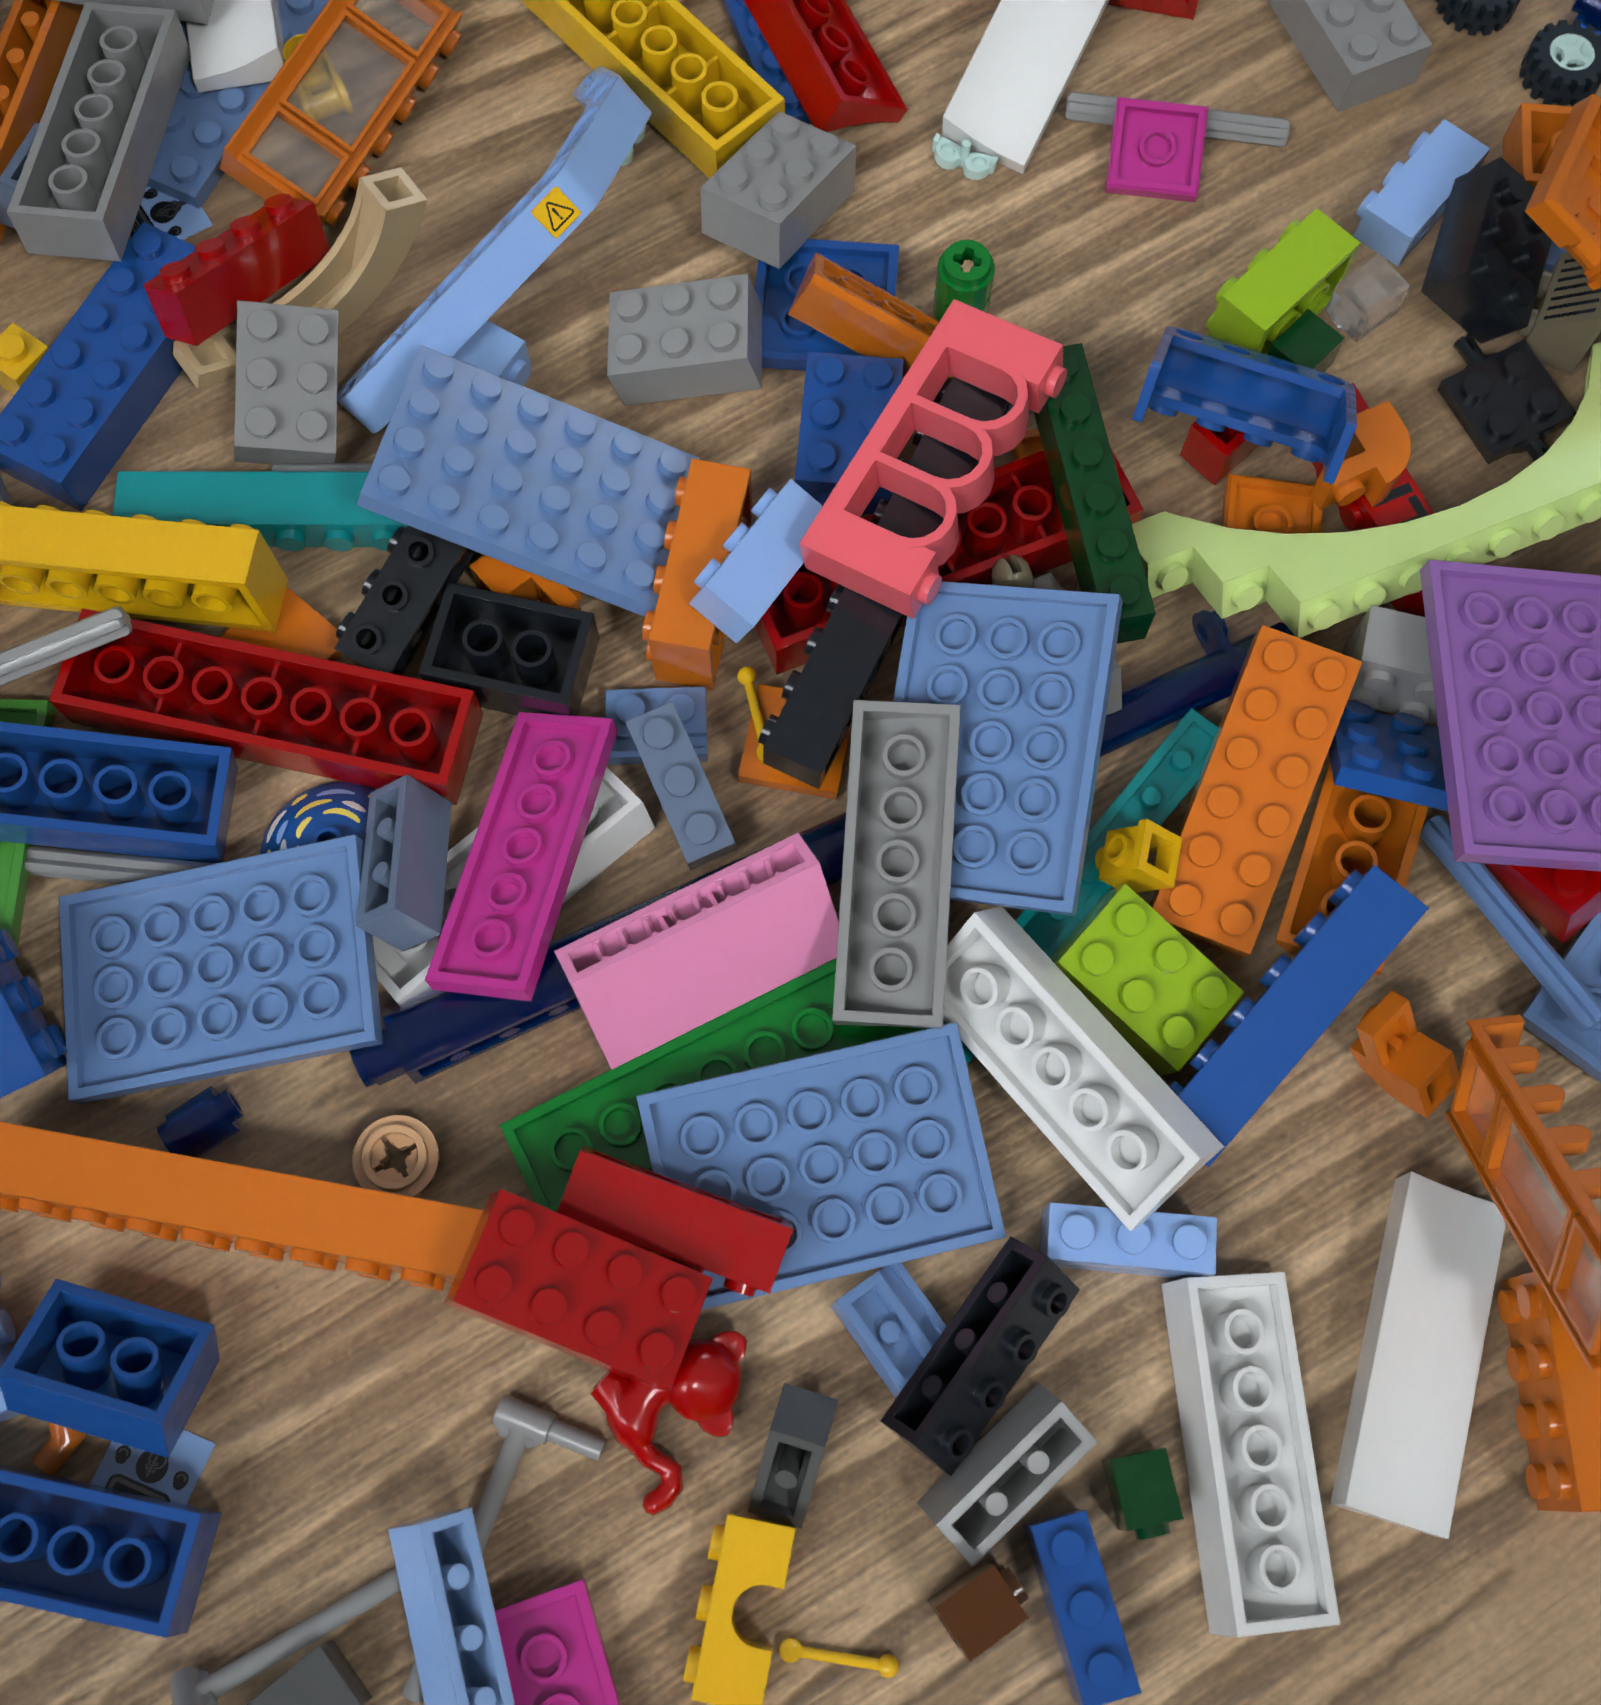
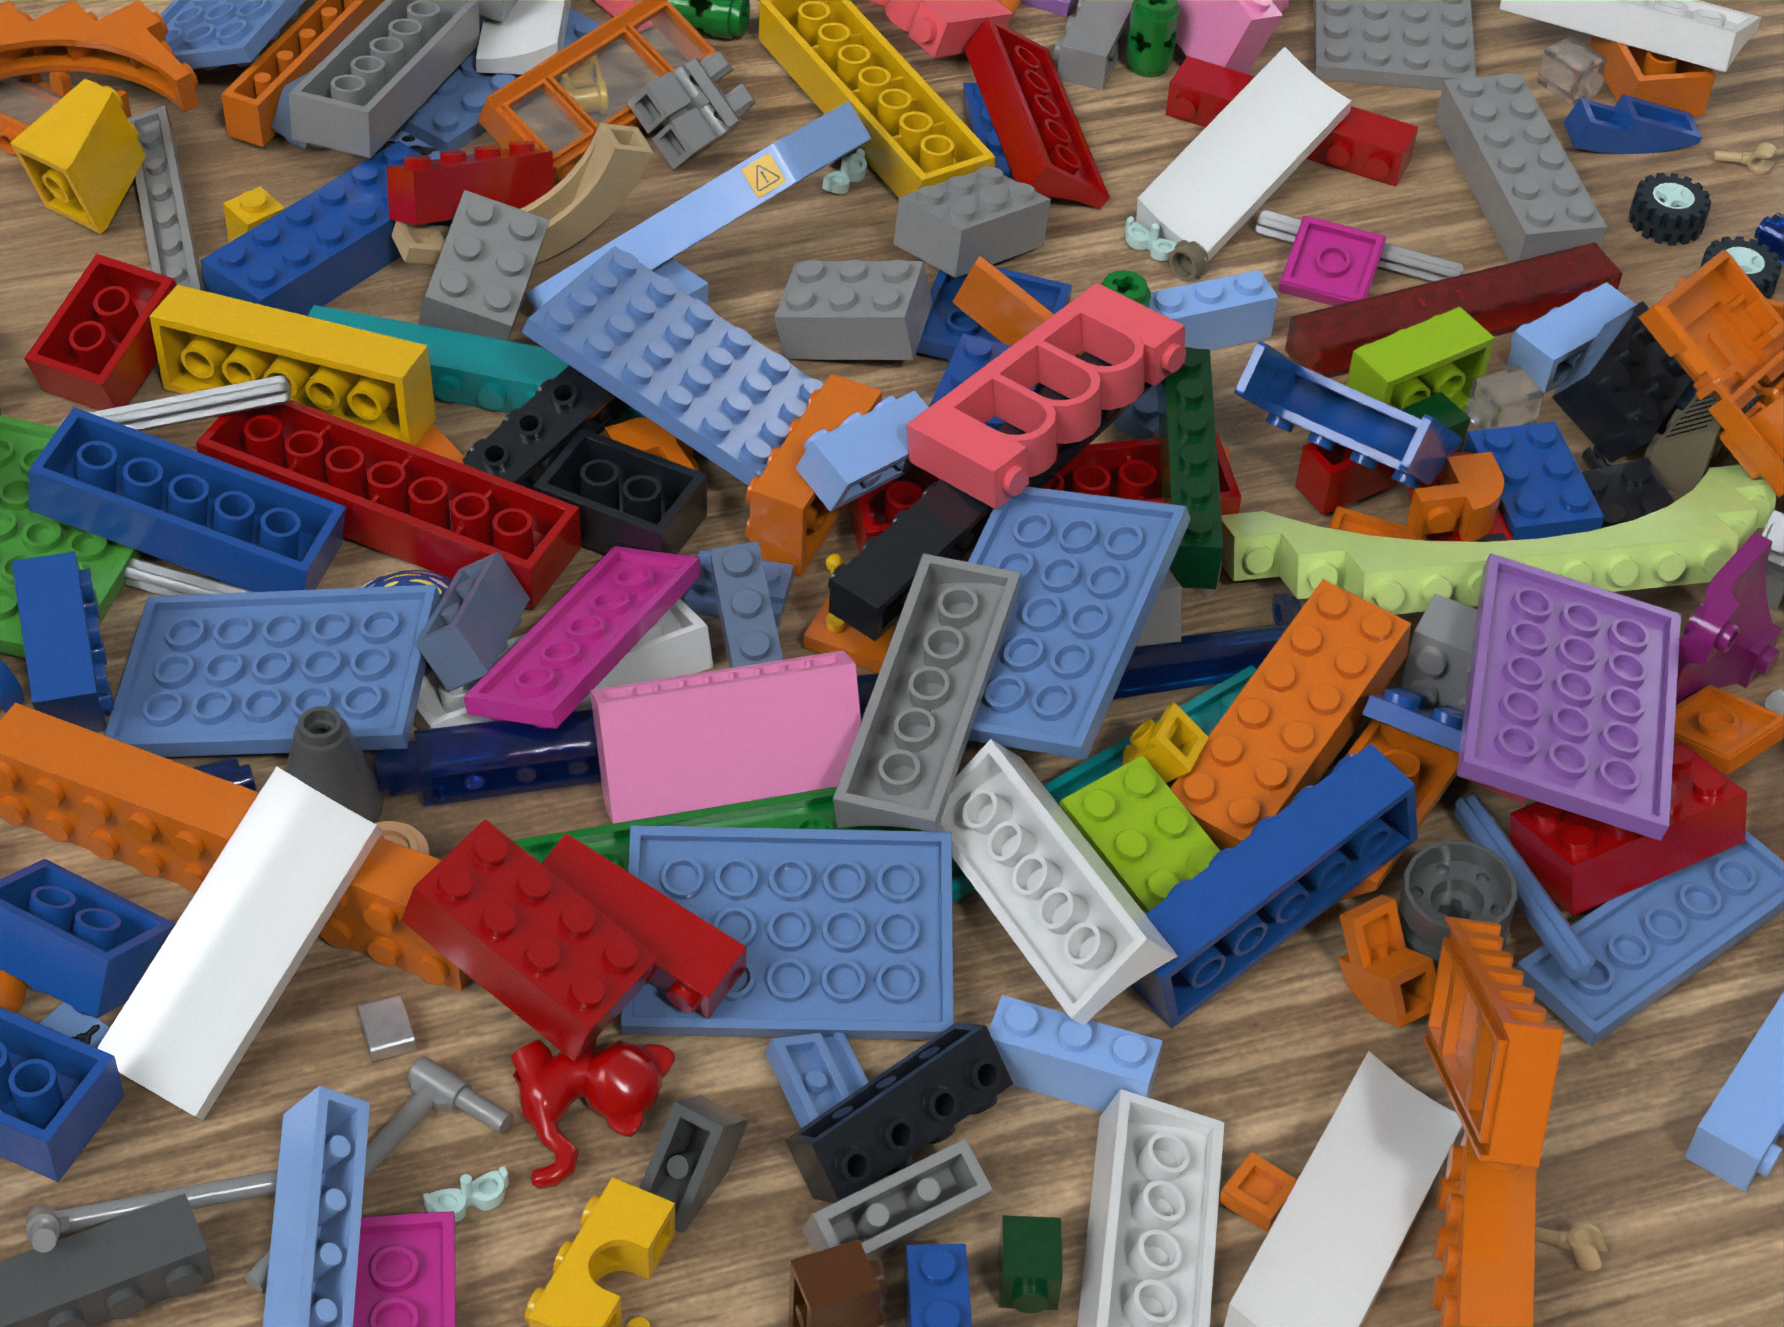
camera: 10 degrees right, 25 degrees down
(287, 1347) = (239, 943): none -> white arch
(318, 1104) = (333, 763): none -> dark grey cone
(444, 96) = (690, 109): none -> light grey hips
(454, 1364) = (386, 1027): none -> flat silver piece
(575, 1555) = (483, 1193): none -> light aqua piece
(1008, 178) = (1188, 260): none -> dark tan plate
(1050, 252) = (1220, 310): none -> light blue brick
(1288, 187) = (1494, 297): none -> clear red brick
(1335, 1345) = (1257, 1191): none -> orange plate
(1442, 413) = (1542, 481): none -> blue brick
(1477, 958) = (1455, 882): none -> dark grey wheel

